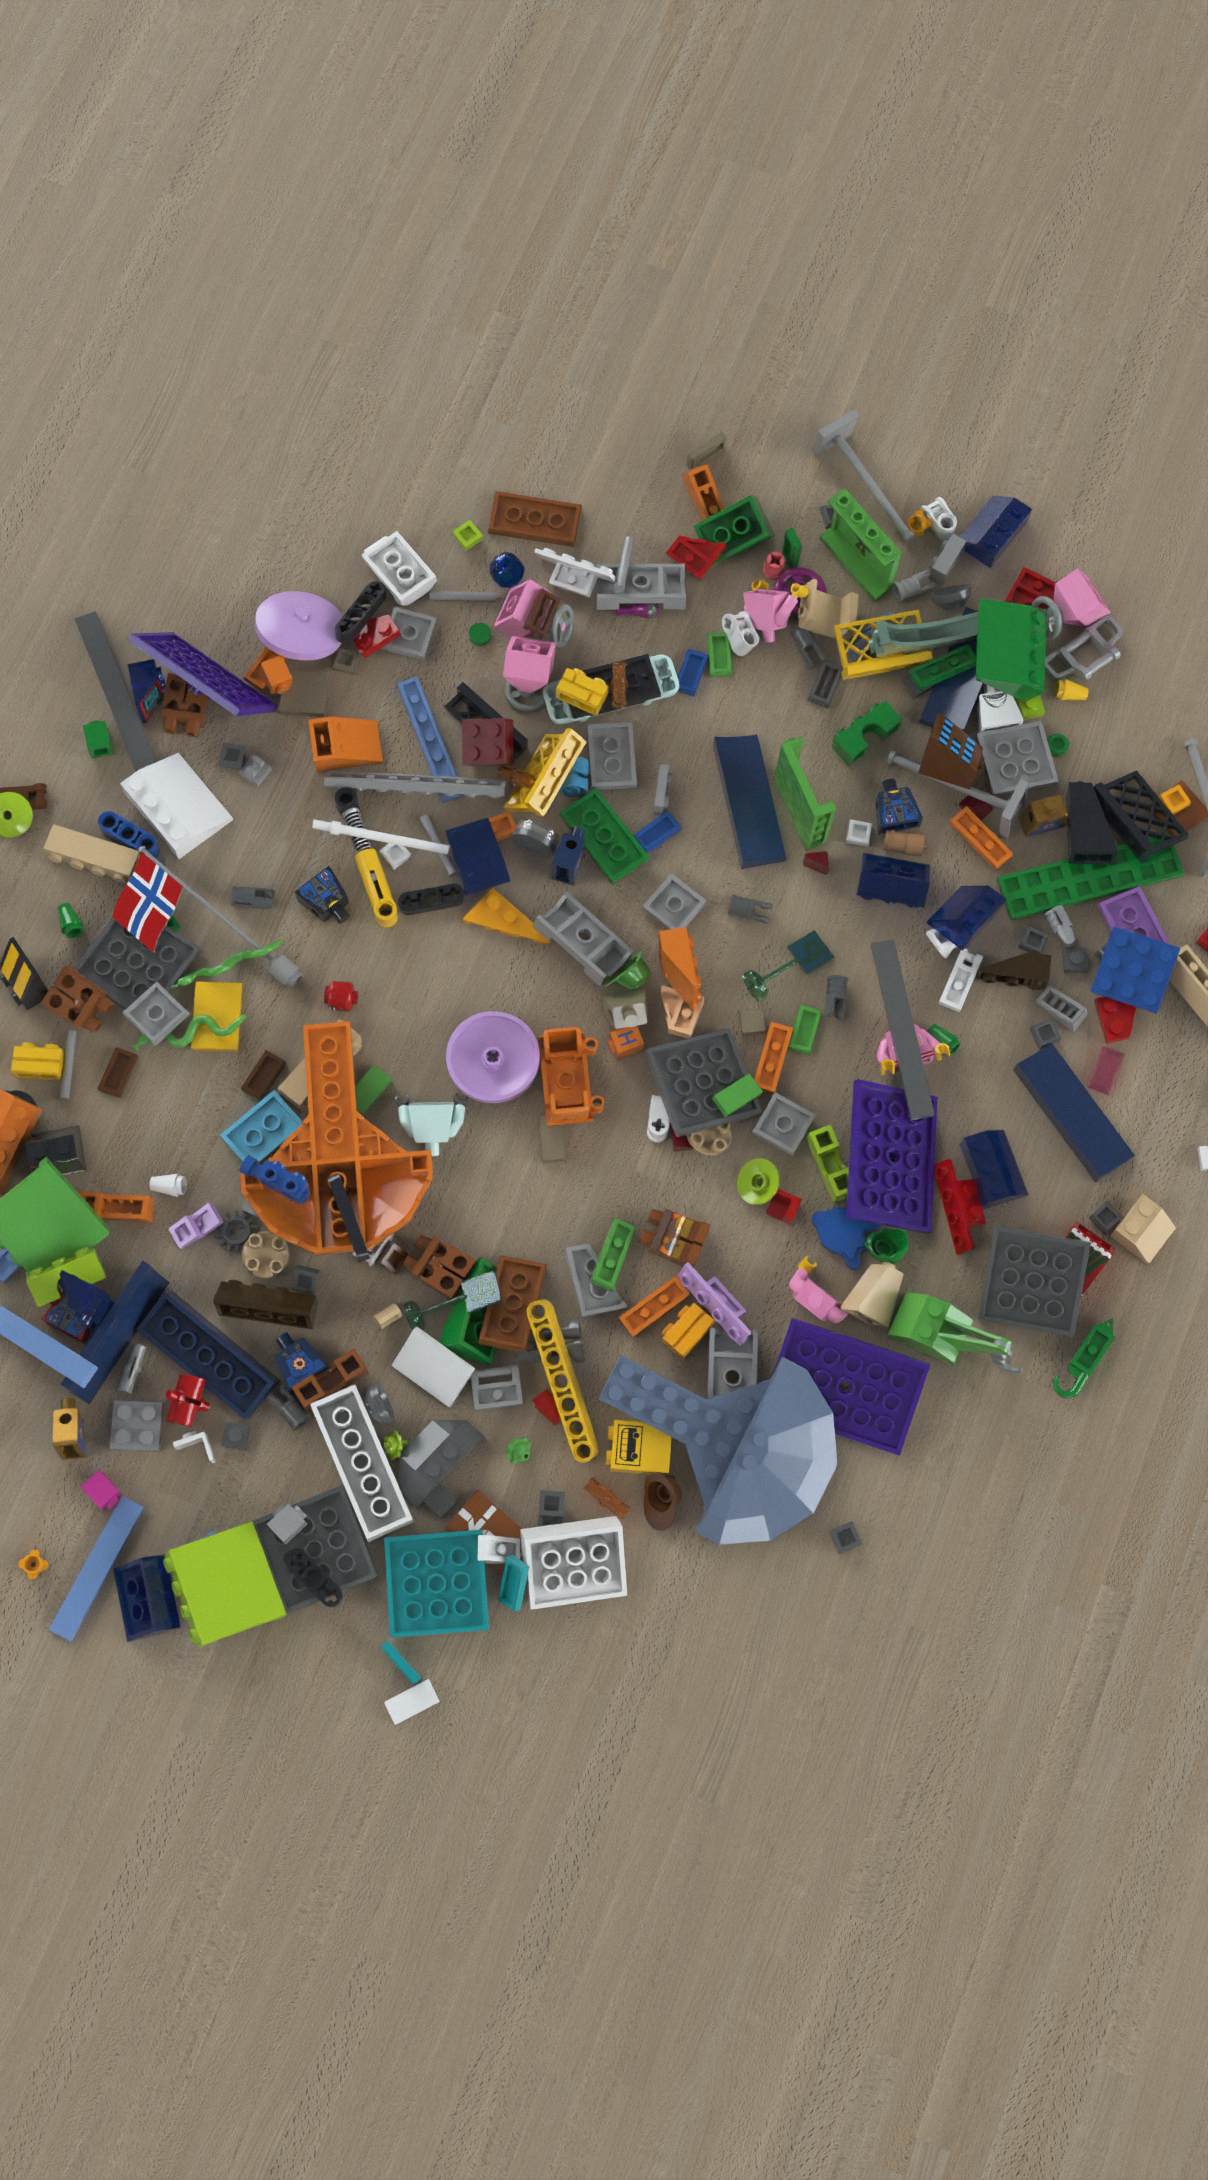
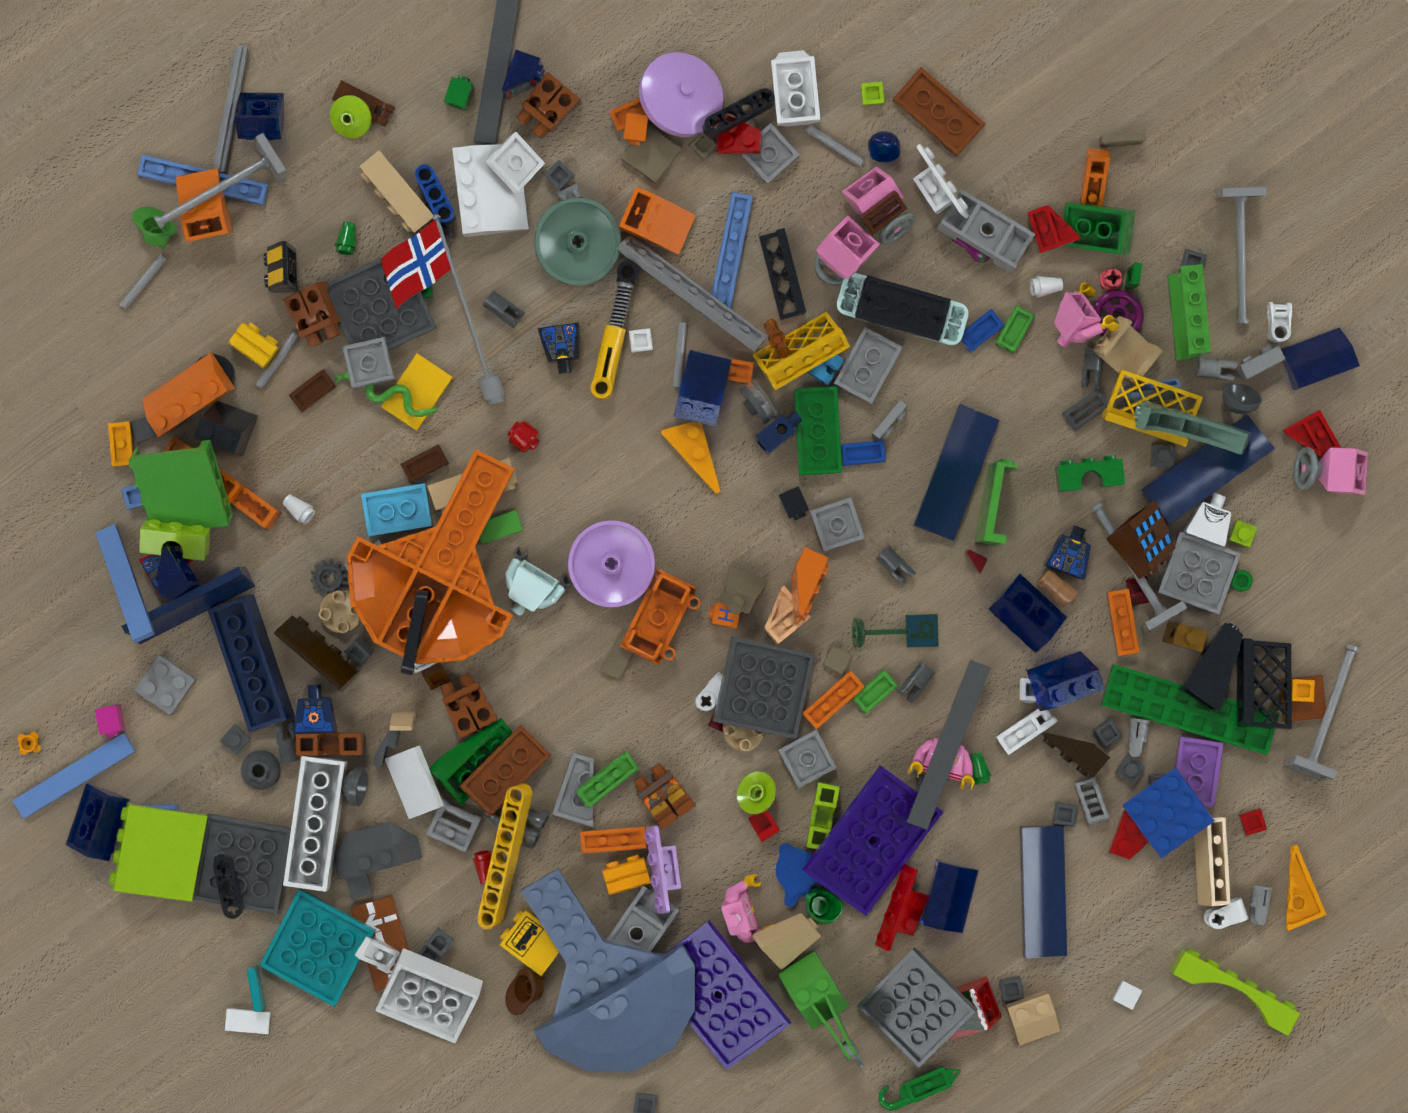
camera: 35 degrees right, 15 degrees up
(69, 1431) = (108, 667): pearl gold torso -> none
(126, 1385) = (175, 648): light grey pin -> none
(185, 765) = (515, 162): none -> white plate
(186, 1400) = (212, 690): red pin -> none
(193, 1438) = (201, 722): white bracket -> none
(196, 1226) = (301, 554): lavender slope -> none
(203, 673) = (573, 94): dark purple piece -> none
(229, 962) = (412, 346): bright green animal -> none
(283, 1182) = (381, 571): blue brick -> none
(284, 1461) = (271, 767): none -> dark grey piece
(287, 781) = (597, 239): none -> sand green dish
(287, 1522) = (232, 834): light grey brick -> none
(336, 828) = (603, 295): white bar -> none
(386, 1344) = (390, 740): none -> dark grey slope
(394, 1444) = (349, 822): lime plant -> none
(413, 896) = (628, 397): black beam -> none
(478, 1294) = (482, 749): piece -> none
(479, 634) = (827, 189): green tile -> none
(487, 742) = (771, 295): dark red brick -> none
(513, 1583) = (373, 984): teal tile -> none
(518, 1450) = (440, 885): bright green plant -> none
(582, 691) = (873, 302): yellow brick -> none
(600, 955) = (741, 487): light grey piece -> none
(607, 1498) = (484, 963): clear orange pin -> none
(619, 684) = (907, 314): clear orange pin -> none
(623, 909) = (794, 503): none -> black brick
(624, 564) = (973, 216): light grey bar -> none
(633, 974) = (764, 562): bright green piece -> none
(721, 603) = (1043, 286): none -> white cone
(737, 1095) = (783, 716): bright green tile -> none
(741, 633) = (1044, 322): white piece -> none
(859, 833) = (1027, 555): white tile -> none
(915, 527) = (1254, 315): light orange plate -> none
(943, 667) = (1190, 459): green tile -> none
(1011, 648) = (1254, 481): green slope -> none
(1068, 690) = (1283, 541): yellow cone -> none
(1105, 1070) = (1092, 873): clear pink tile -> none
(1106, 649) = (1335, 501): light grey bar -> none

